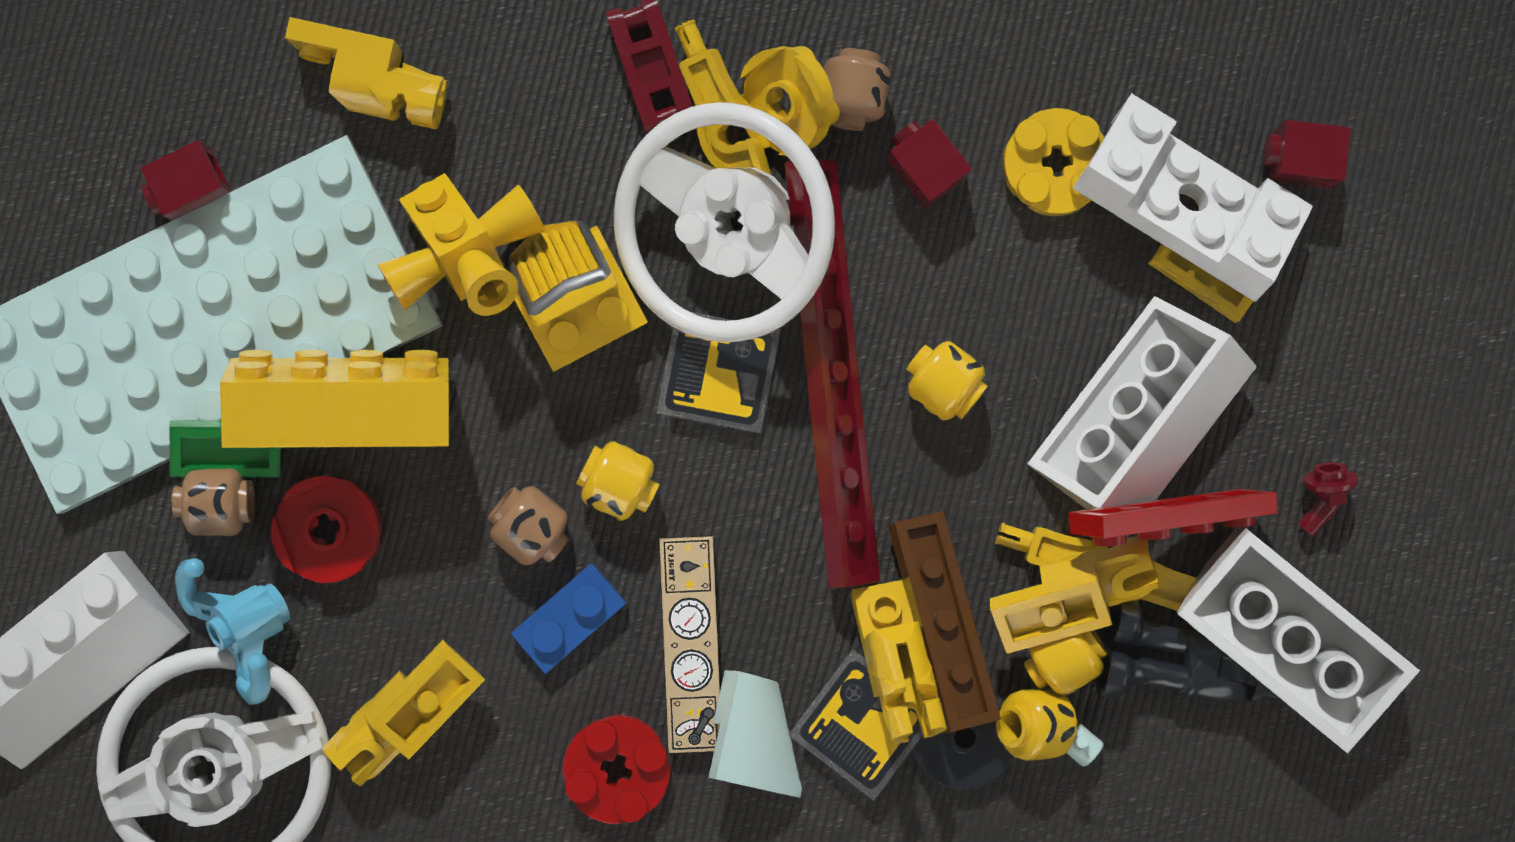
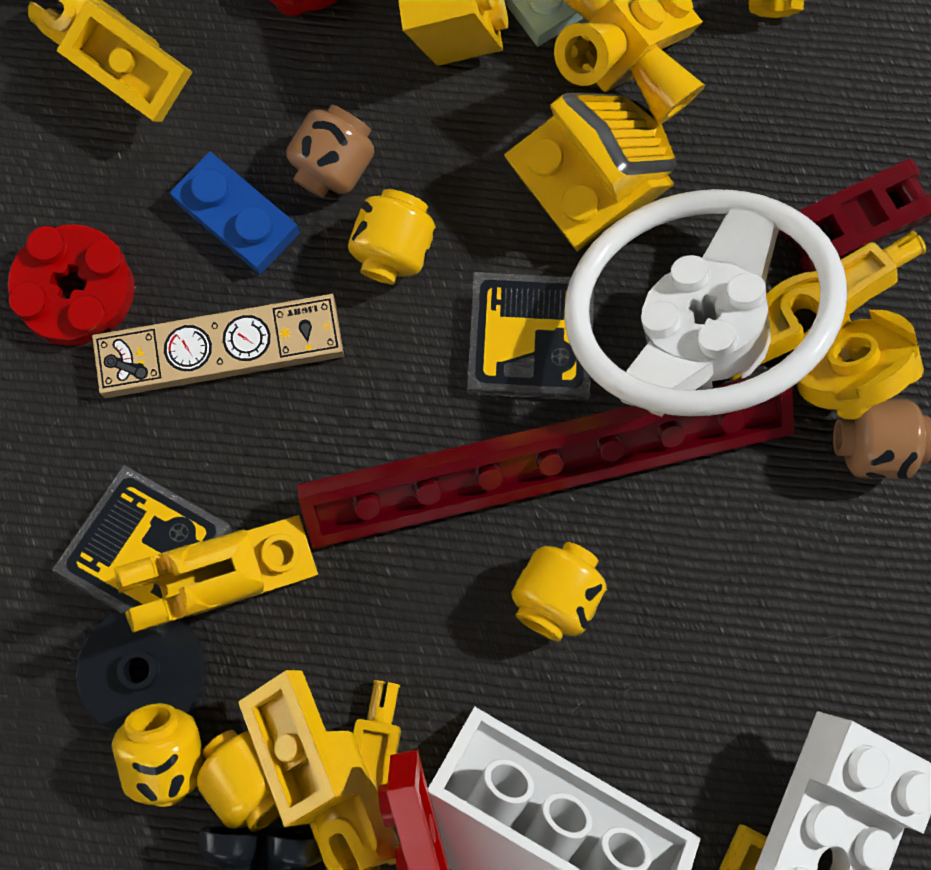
camera: 85 degrees right, 10 degrees down
(753, 736) = (114, 424): light aqua slope -> none
(927, 161) = (814, 536): dark red brick -> none
(945, 619) = (268, 626): reddish brown plate -> none
(1034, 139) = (863, 663): yellow plate -> none
(1085, 746) = (140, 821): light aqua hand -> none

